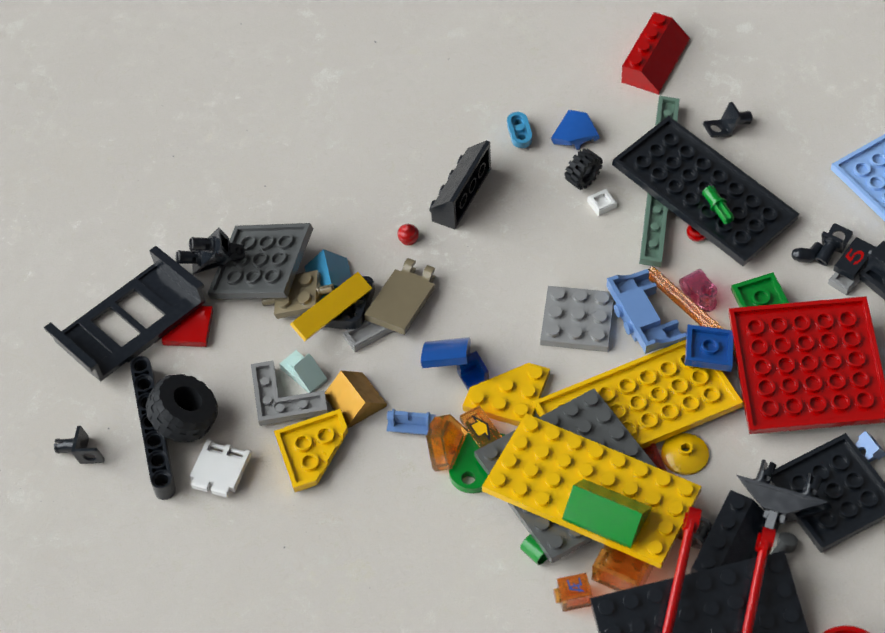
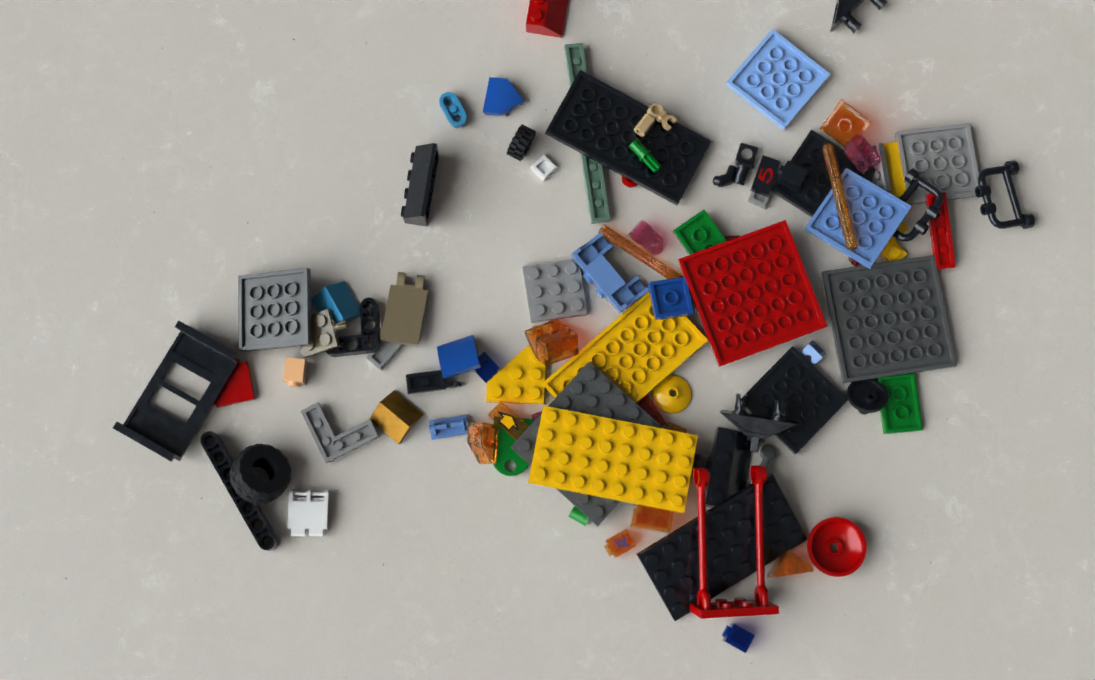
camera: 25 degrees left, 25 degrees up
(78, 447) = (183, 525): black bracket -> none
(210, 252) = (230, 318): black connector -> none
(260, 326) = (295, 372): none -> light nougat brick
(304, 371) = (345, 403): light aqua slope -> none
(311, 447) = (375, 473): yellow plate -> none
(331, 306) = (351, 341): yellow tile -> none
(407, 372) = (428, 382): none -> black hinge
(408, 234) = (389, 244): red plate -> none
(558, 361) = (552, 342): none -> clear orange slope
(605, 512) = (633, 482): green slope -> none
(728, 122) = (629, 57): black bracket -> none
(741, 170) = (654, 112): none -> tan bar

